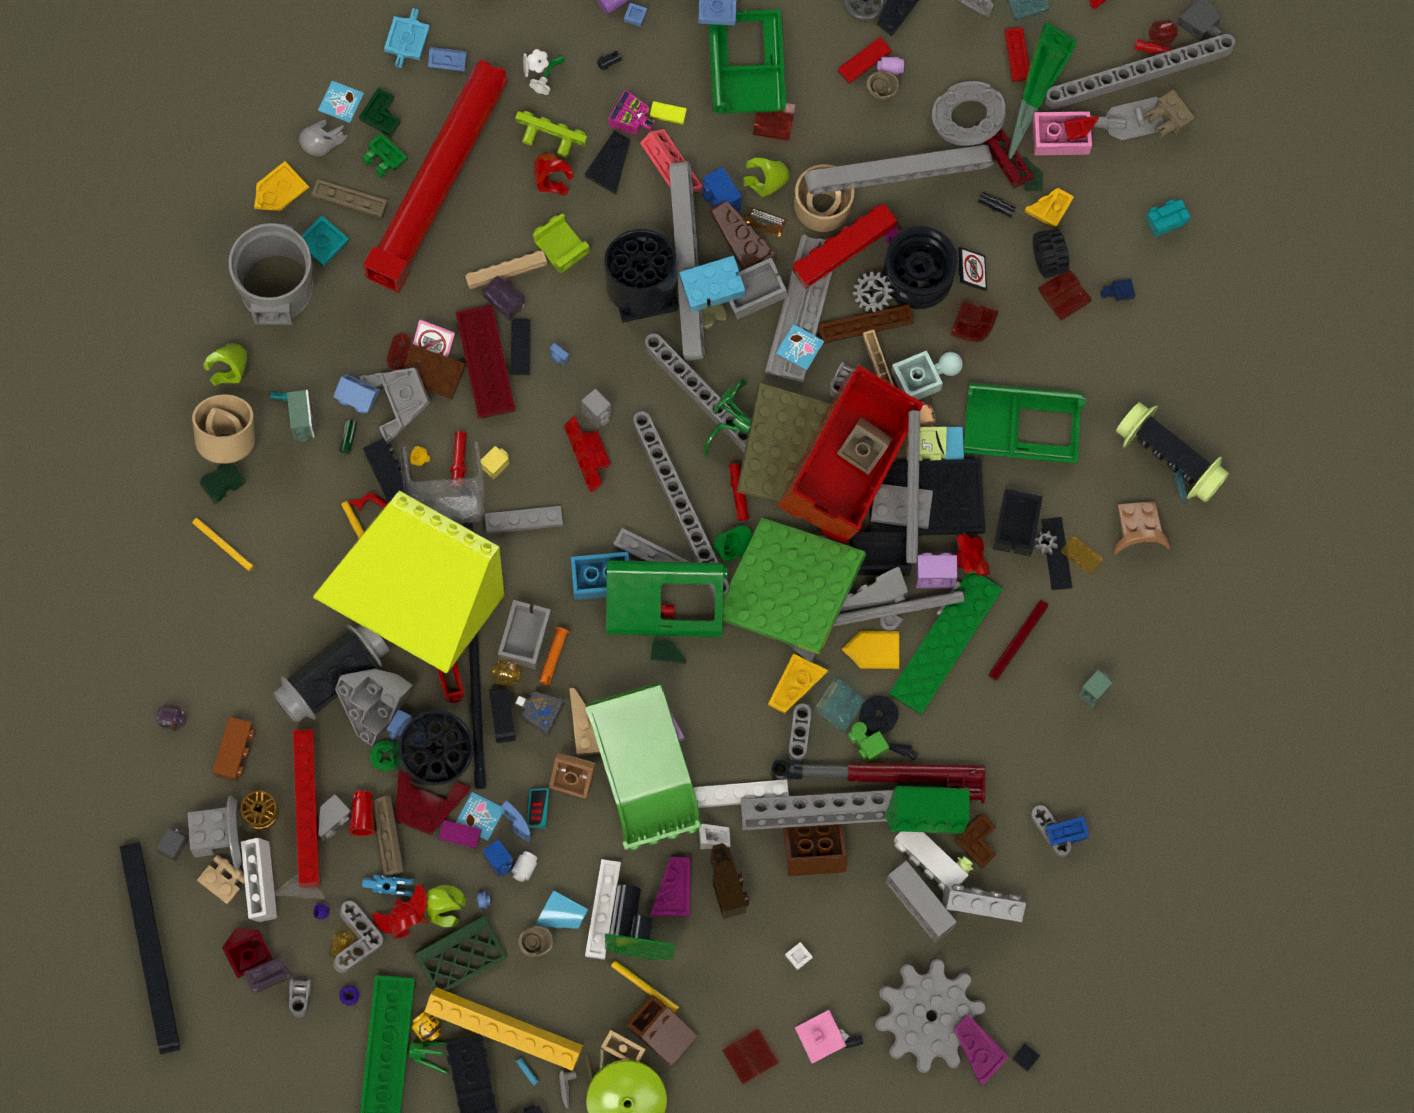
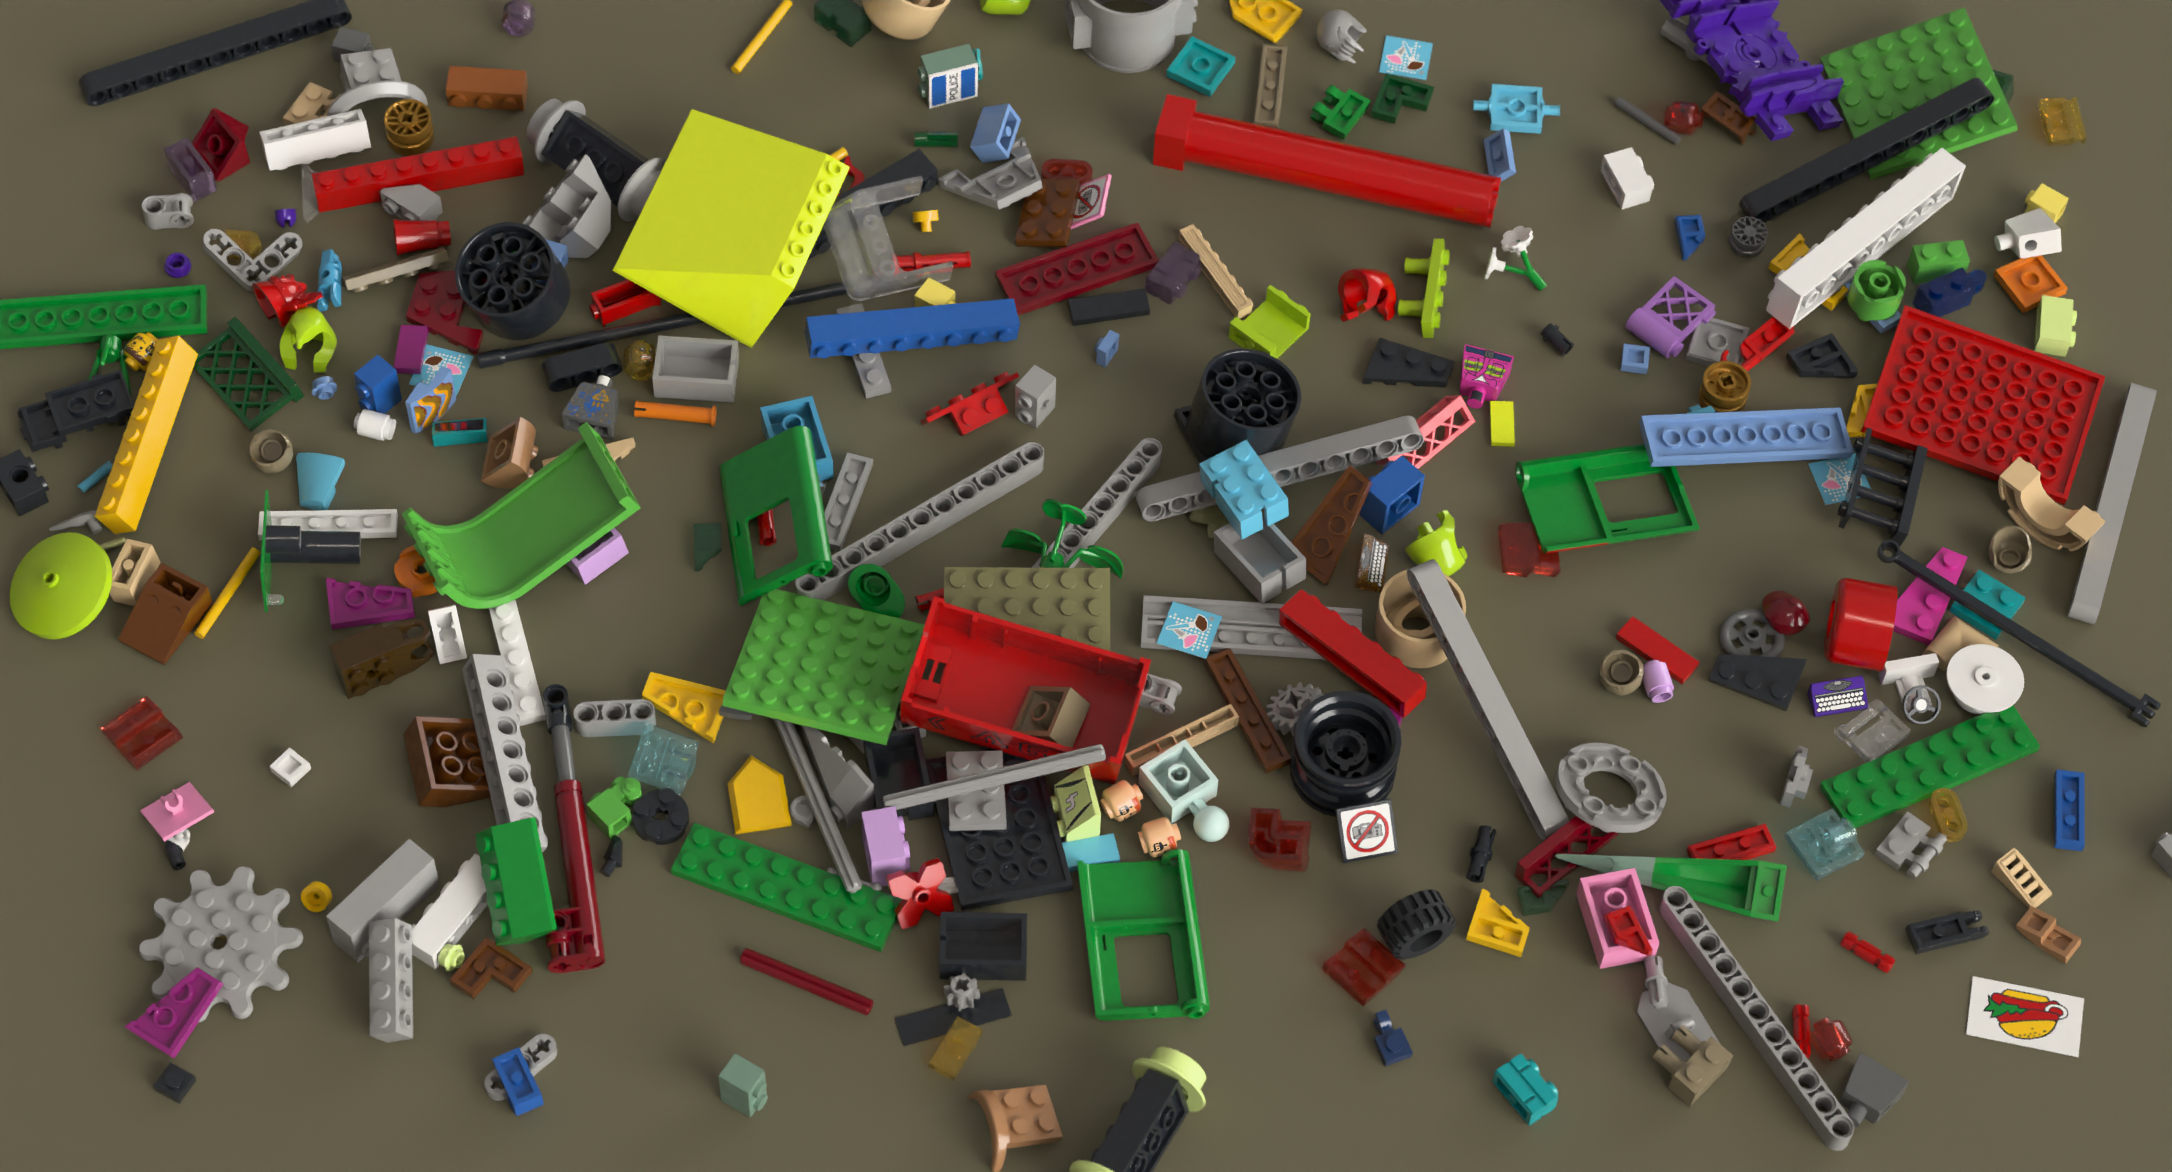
camera: 80 degrees right, 15 degrees down
(520, 480) = (911, 328): none -> blue brick
(657, 859) = (406, 574): none -> orange plate
(903, 948) = (316, 896): none -> yellow tile
(953, 398) = (1159, 837): none -> light nougat head

